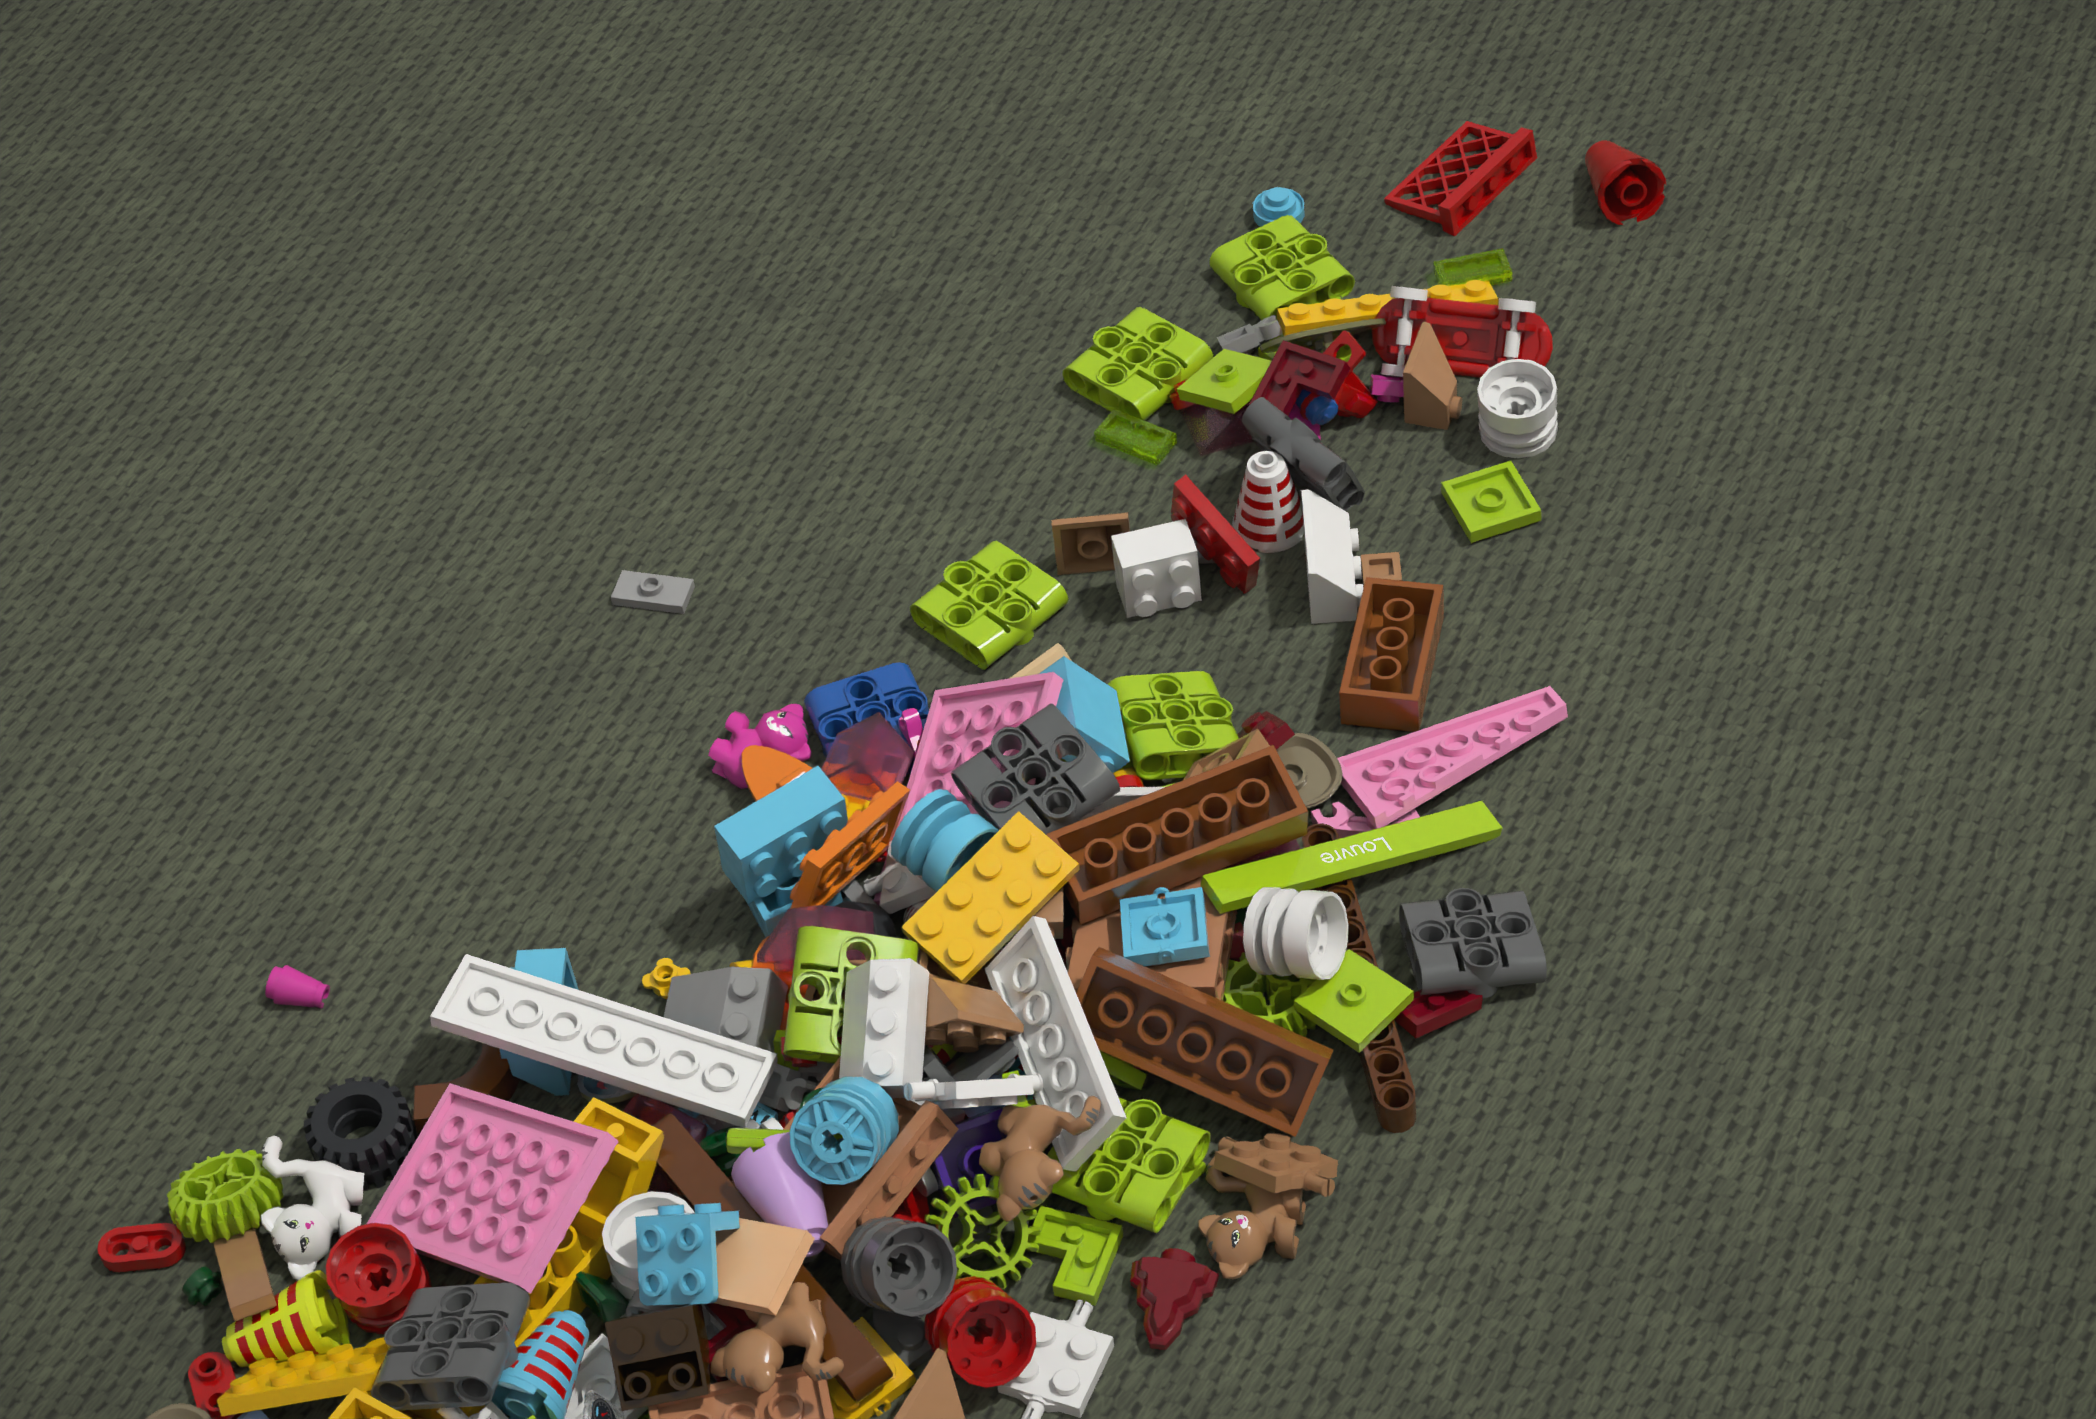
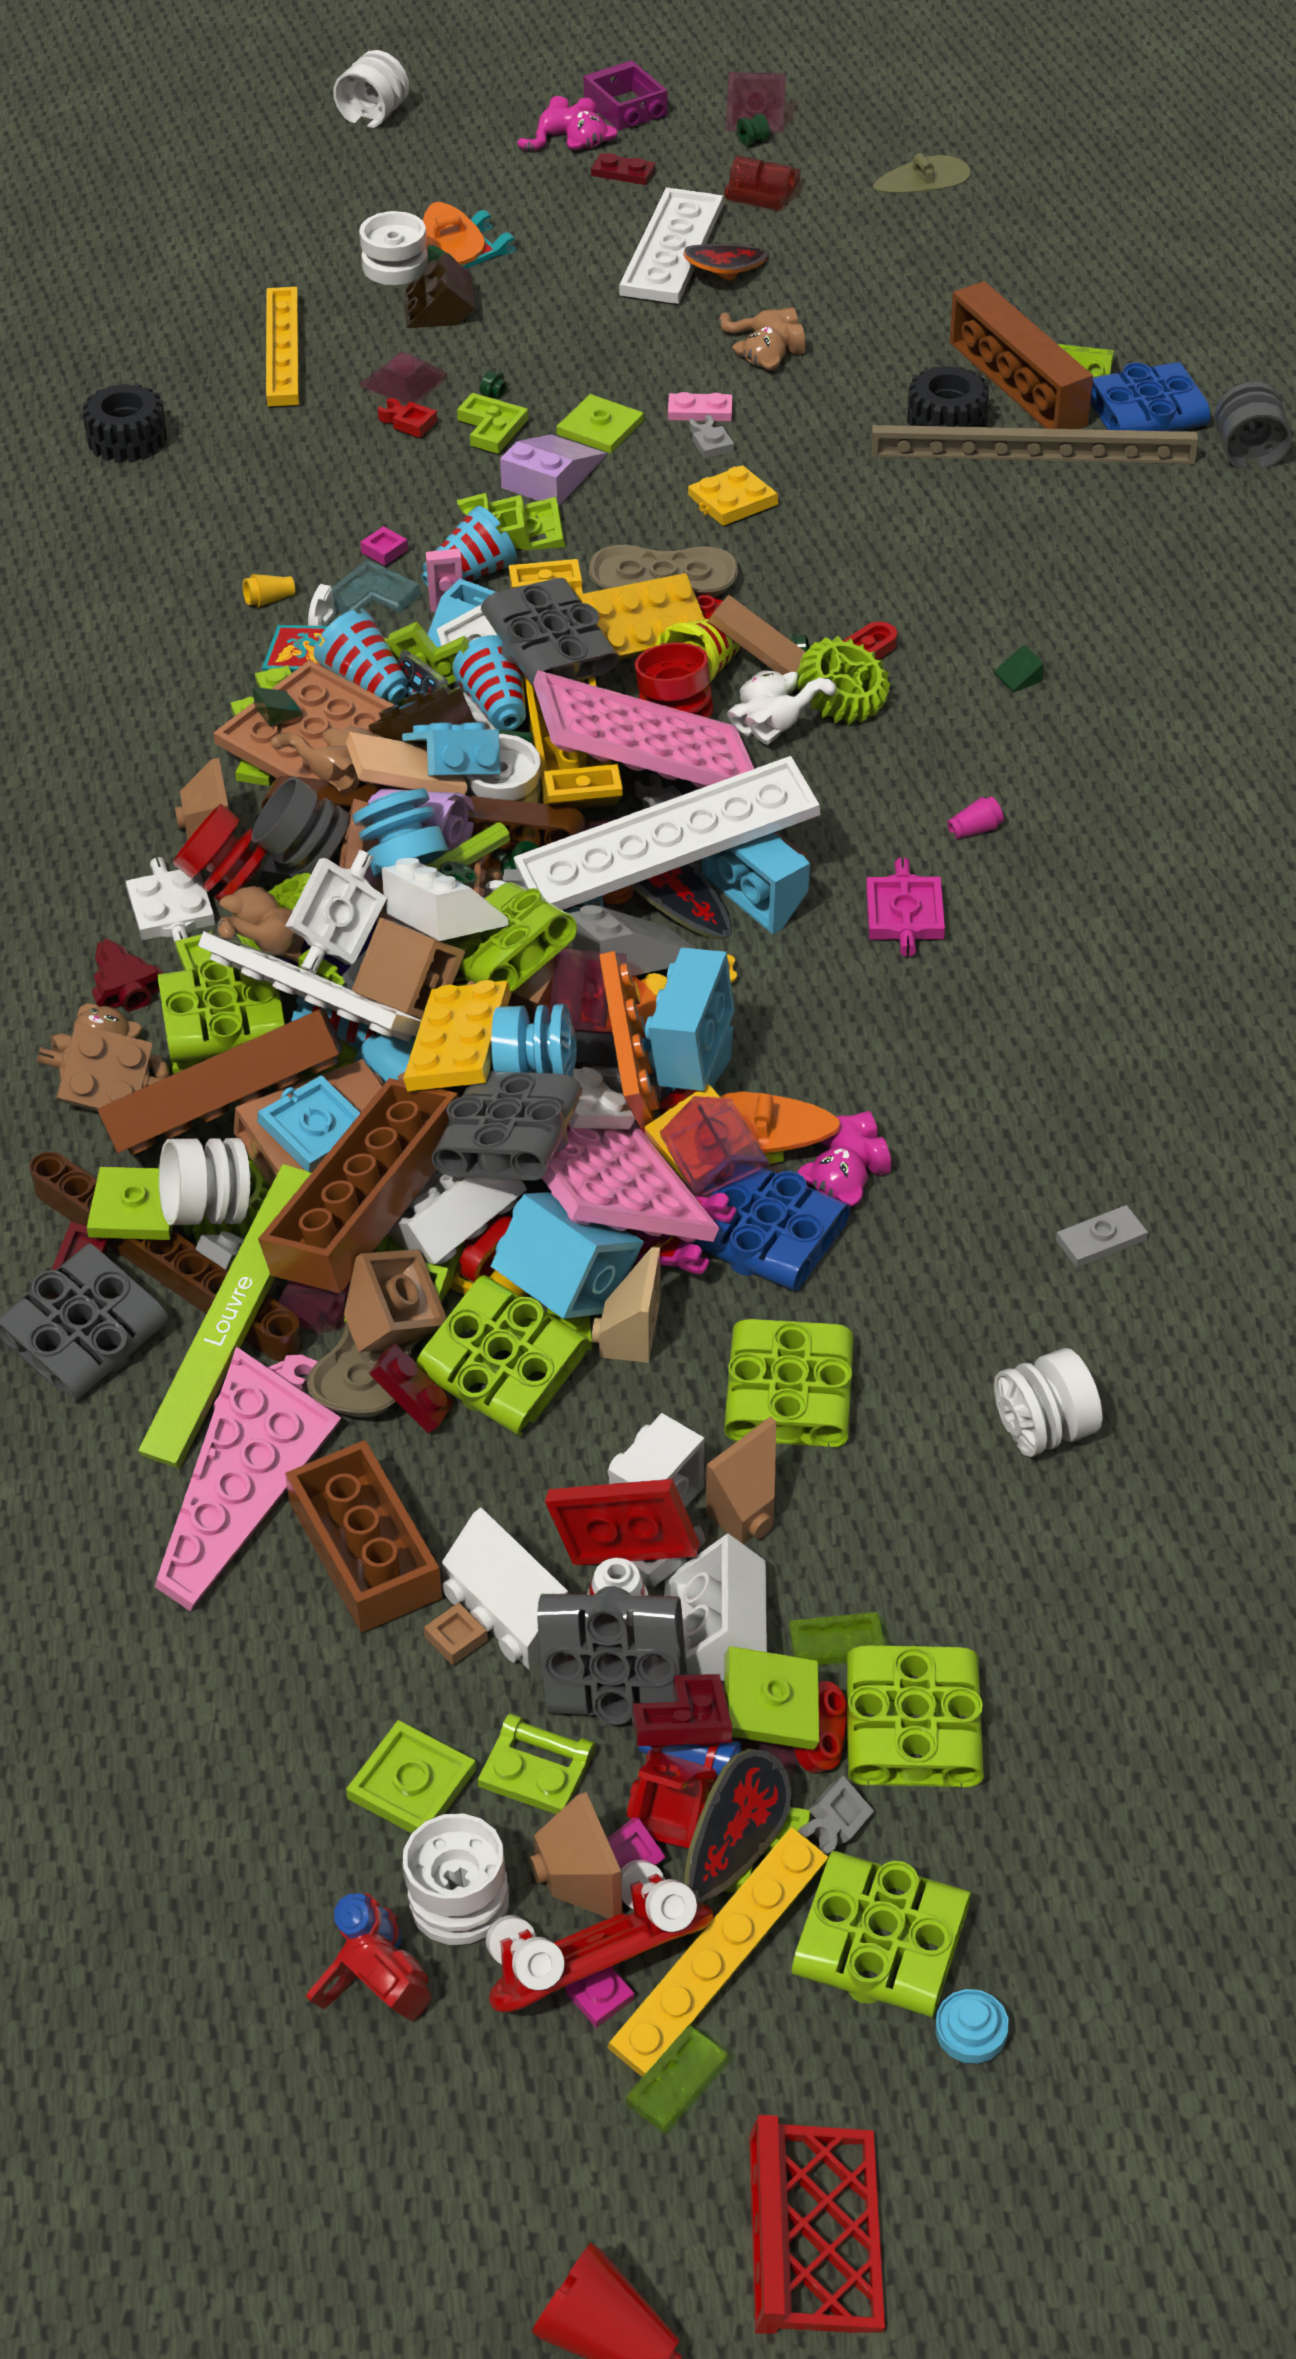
camera: 135 degrees right, 0 degrees up
(56, 1127) = (1021, 670): none -> dark green slope
(358, 1106) = (815, 747): black tyre -> none
(452, 931) = (904, 907): none -> dark pink plate
(843, 473) = (1048, 1401): none -> white wheel
(1211, 457) = (720, 1603): none -> white slope
(1407, 464) = (531, 1777): none -> lime plate
(1607, 395) = (374, 1958): none -> red piece

